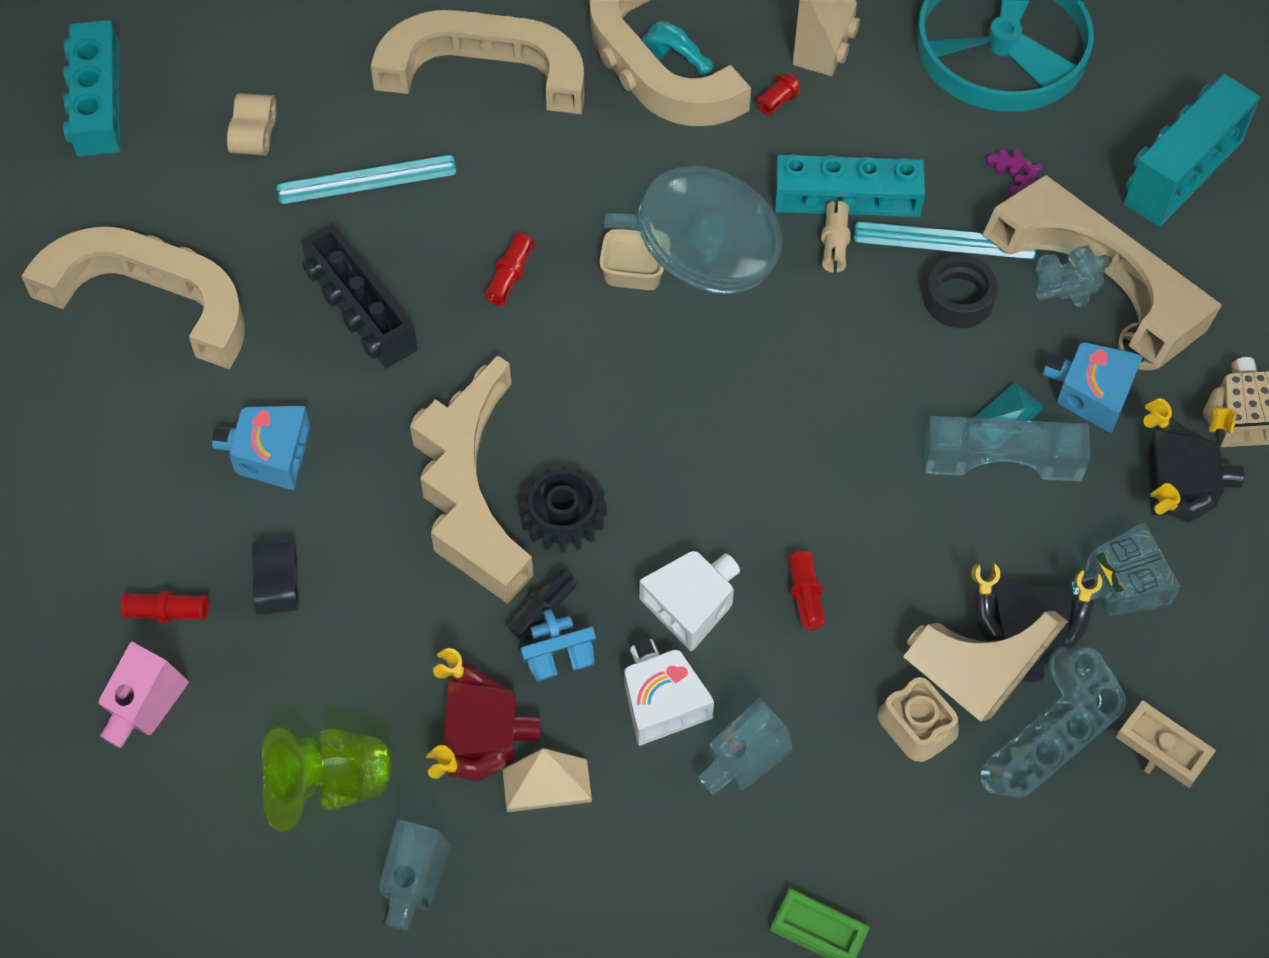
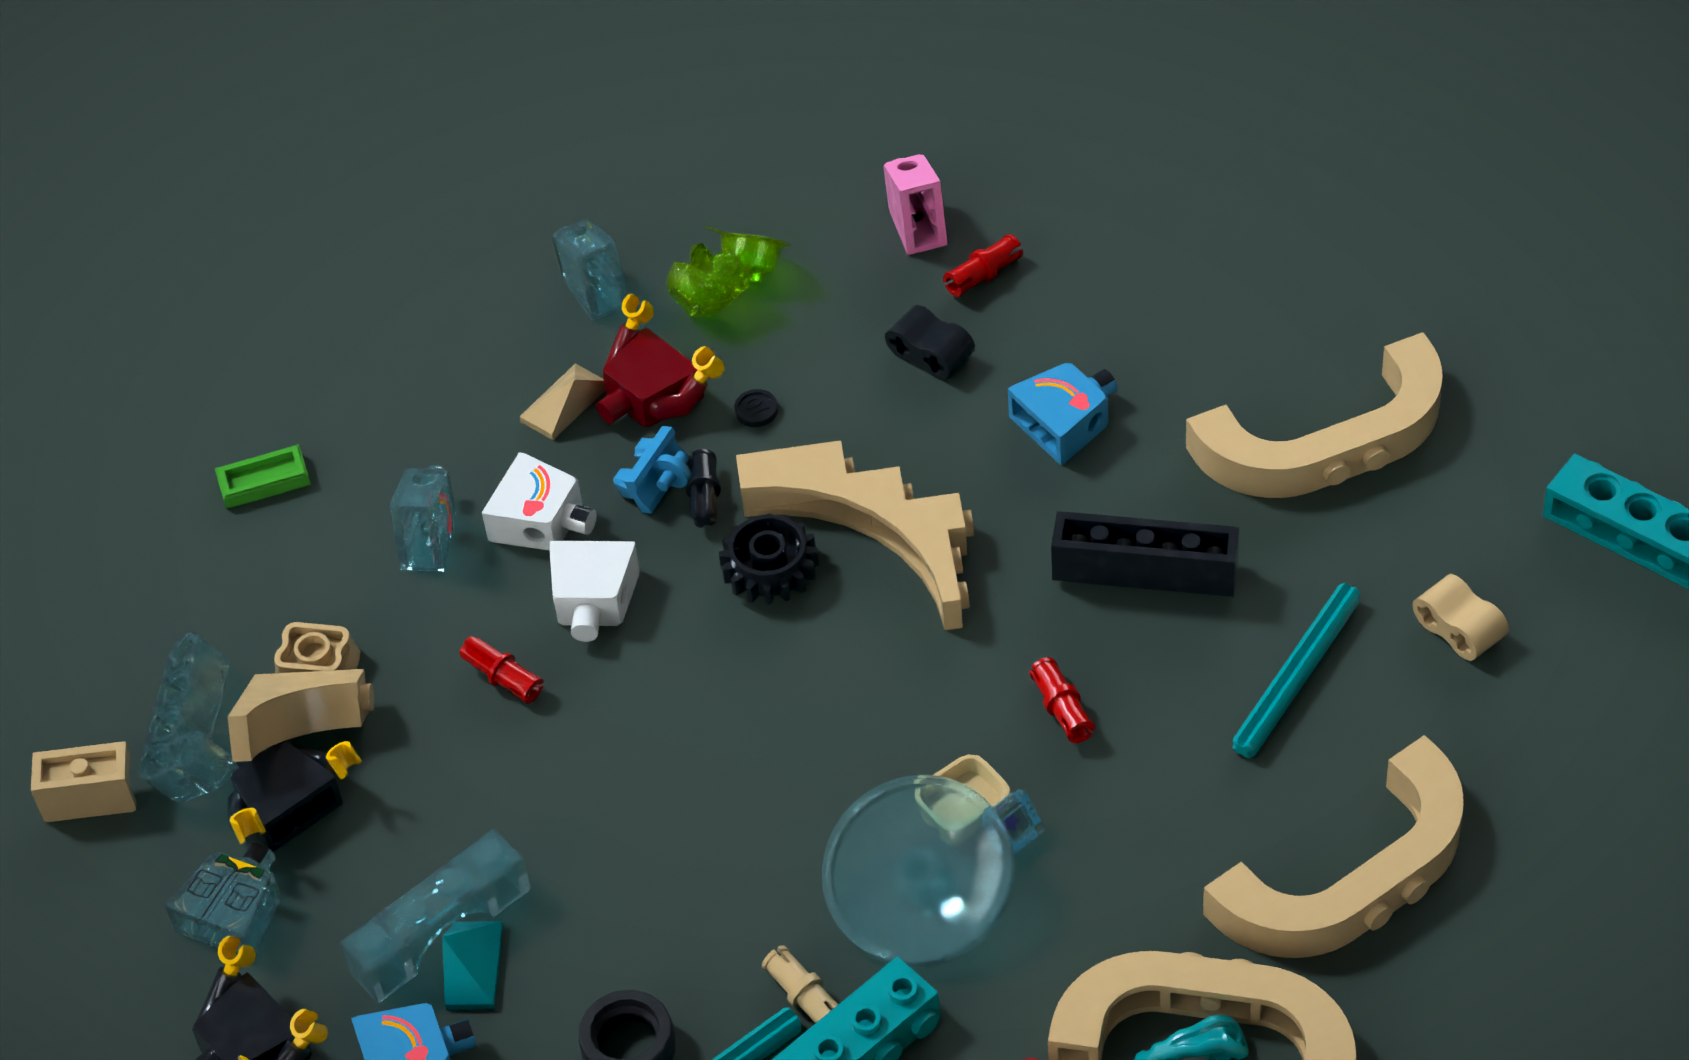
camera: 140 degrees right, 10 degrees down
(428, 645) = (756, 408): none -> black piece

